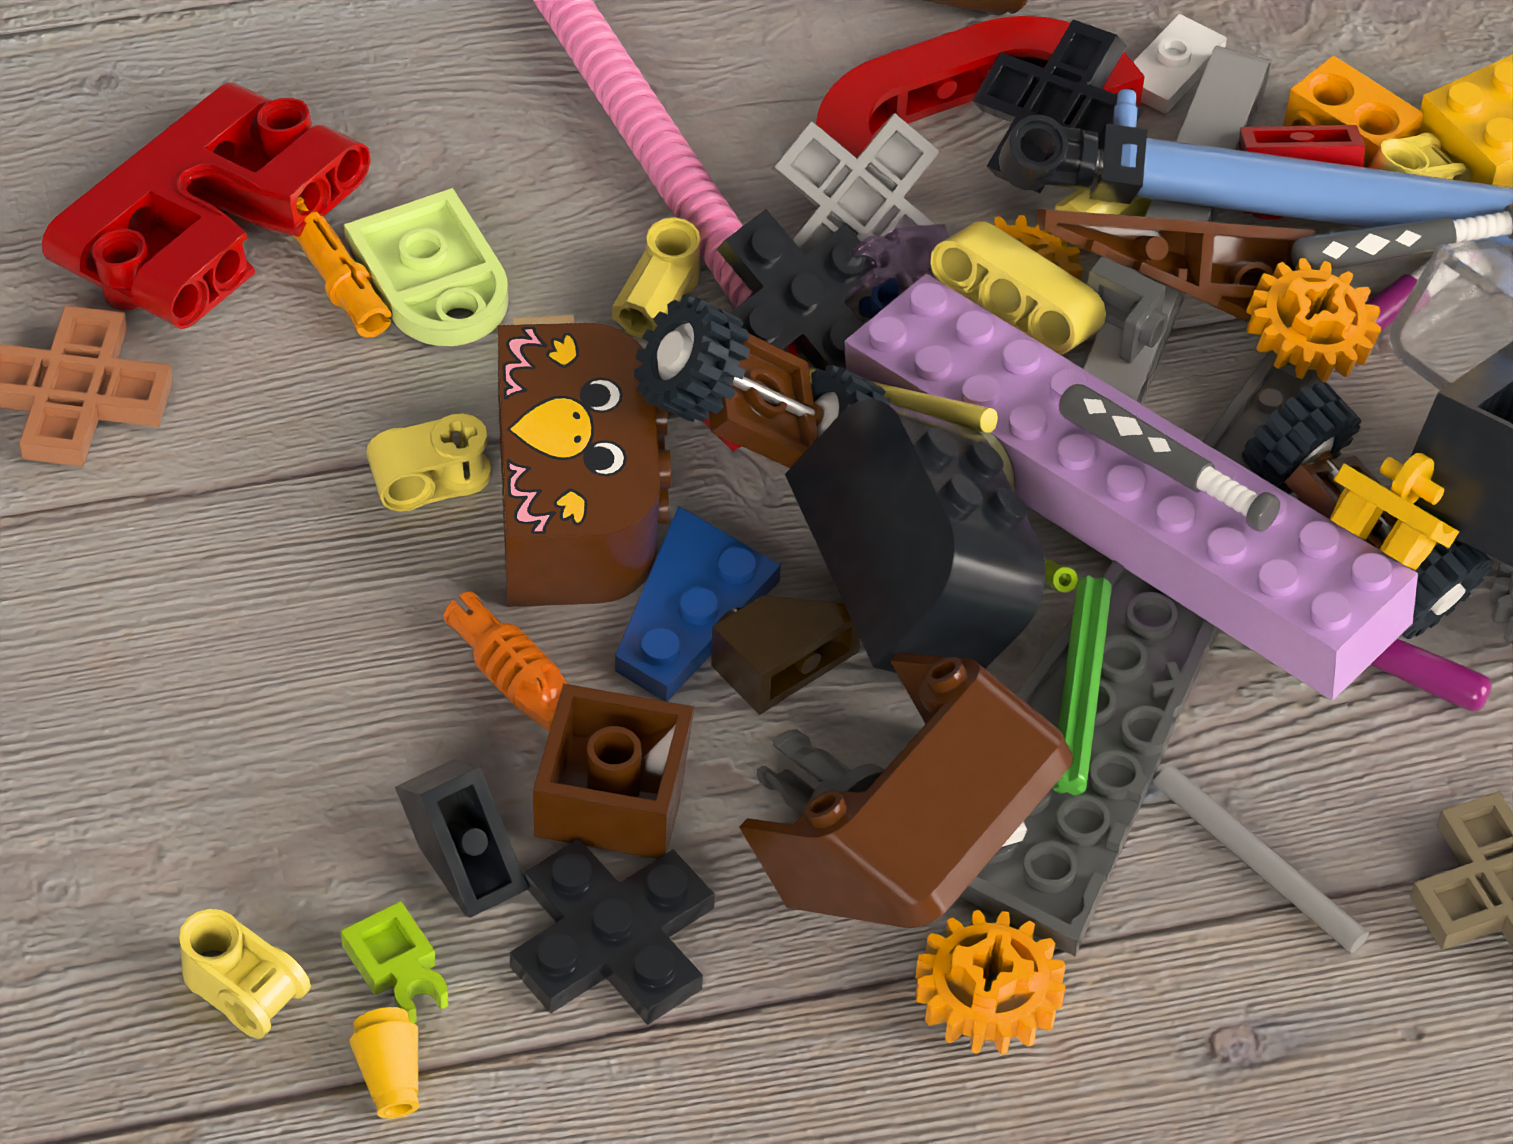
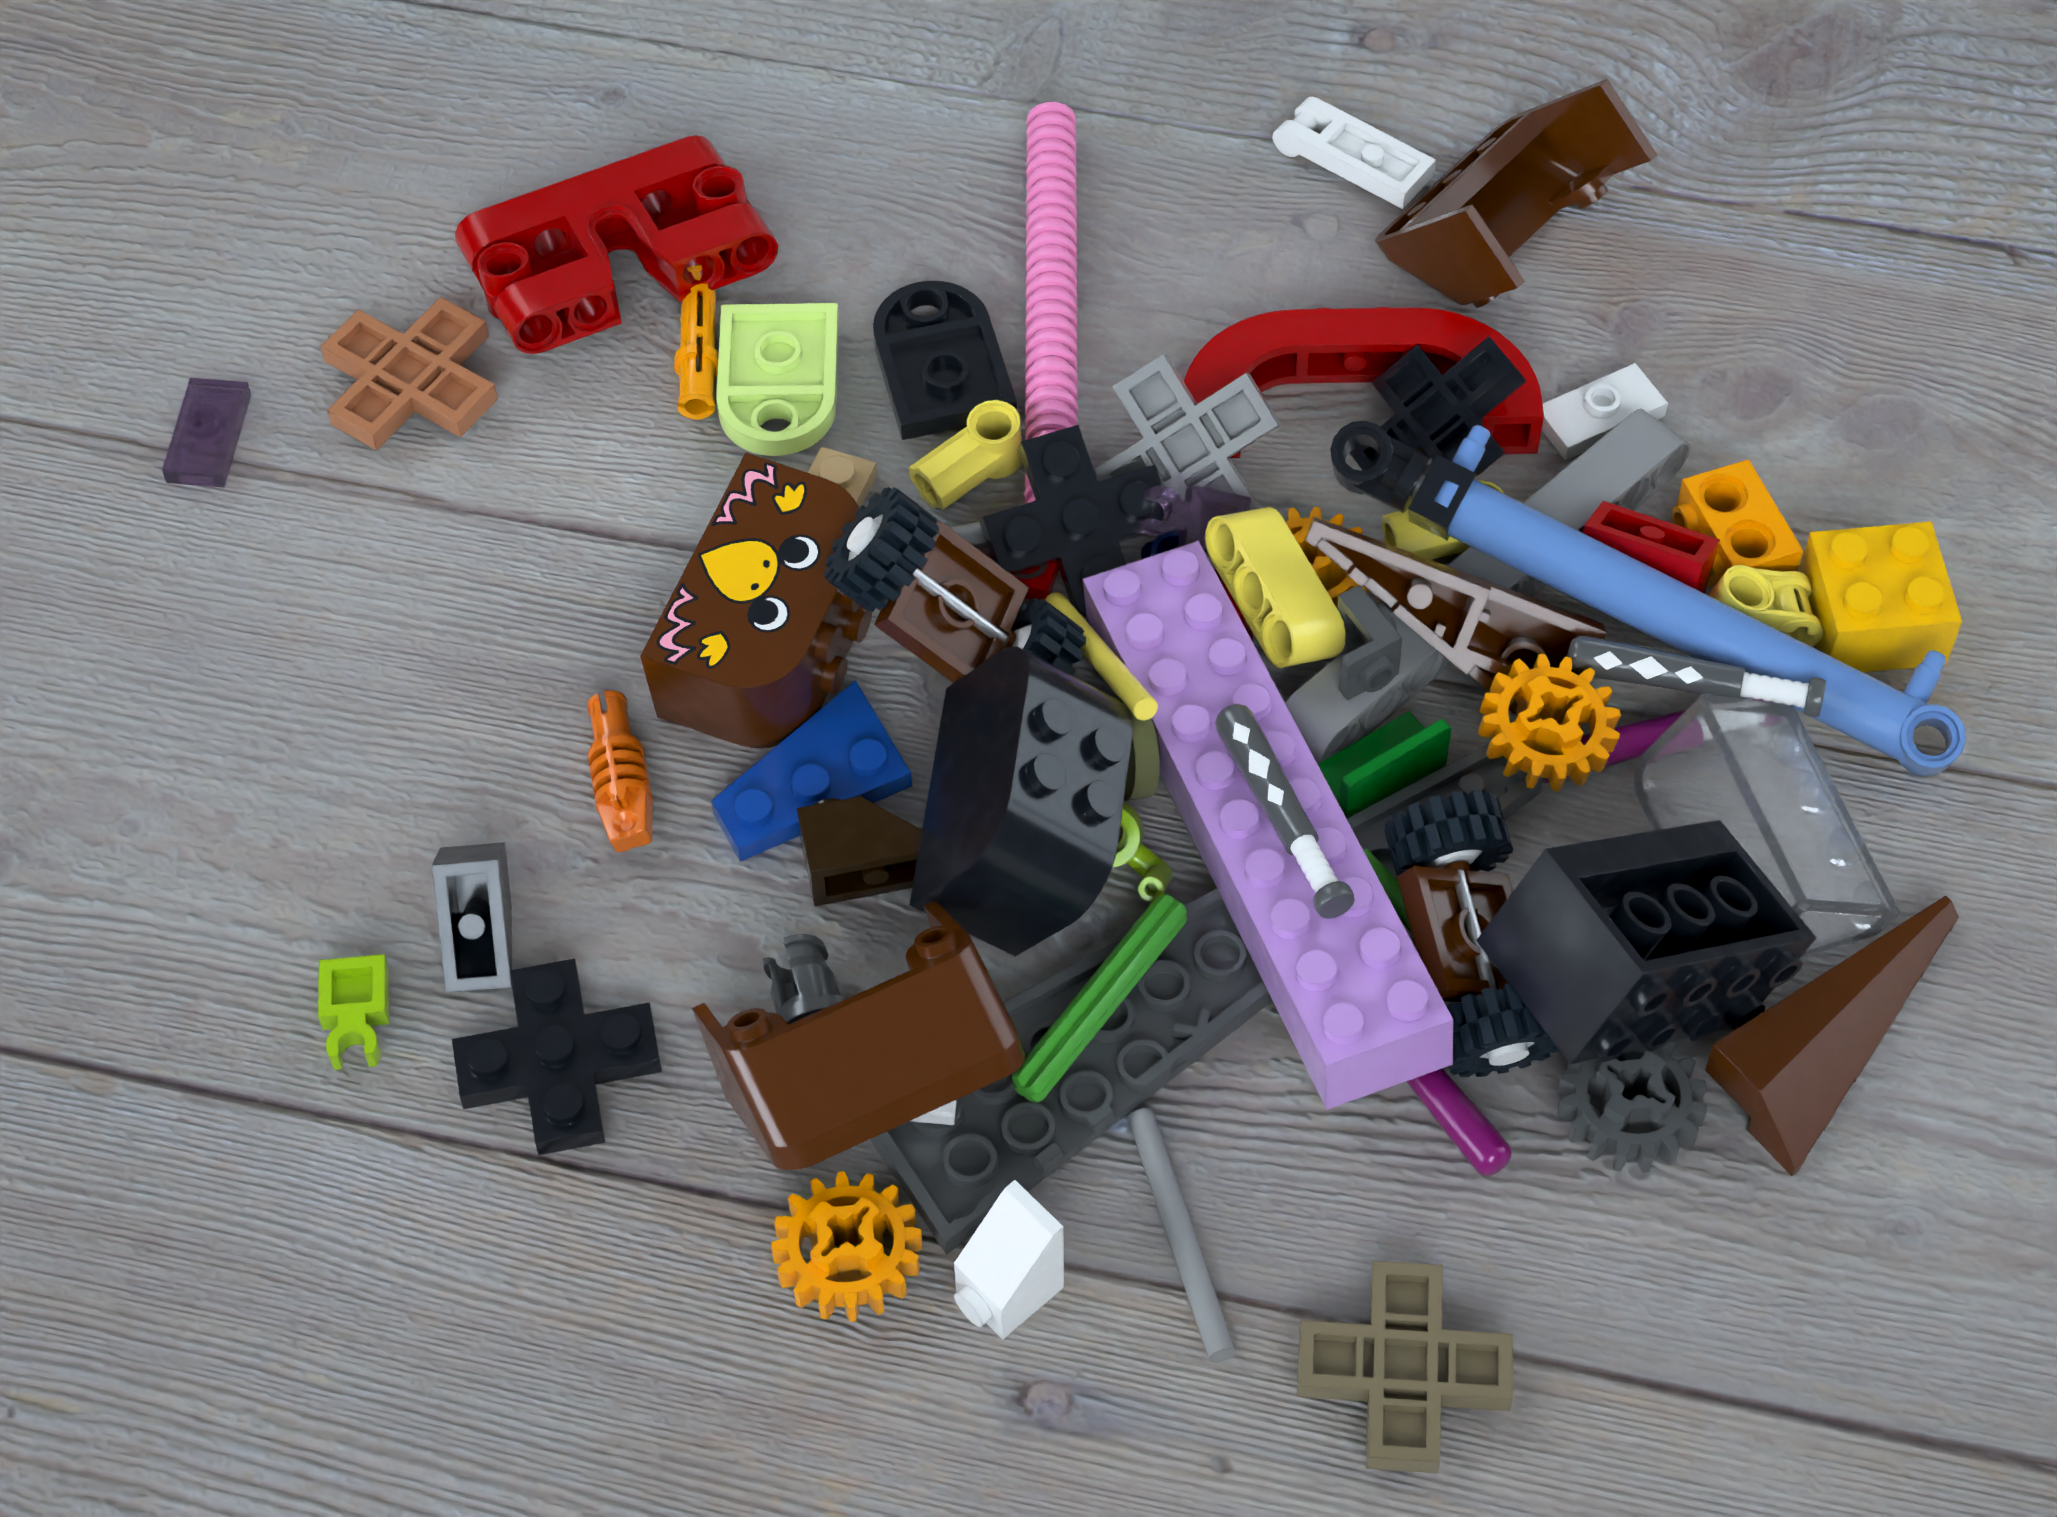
camera: 30 degrees right, 5 degrees up
(246, 980) = (219, 967): light yellow piece -> none
(388, 1059) = (291, 1094): yellow cone -> none
(424, 464) = (648, 553): light yellow piece -> none
(577, 211) = (939, 362): none -> black plate
(612, 771) = (628, 909): reddish brown slope -> none
(1150, 929) = (1010, 1263): none -> white slope
(1193, 396) = (1386, 762): none -> green panel
(1415, 529) = (1475, 940): yellow hips -> none

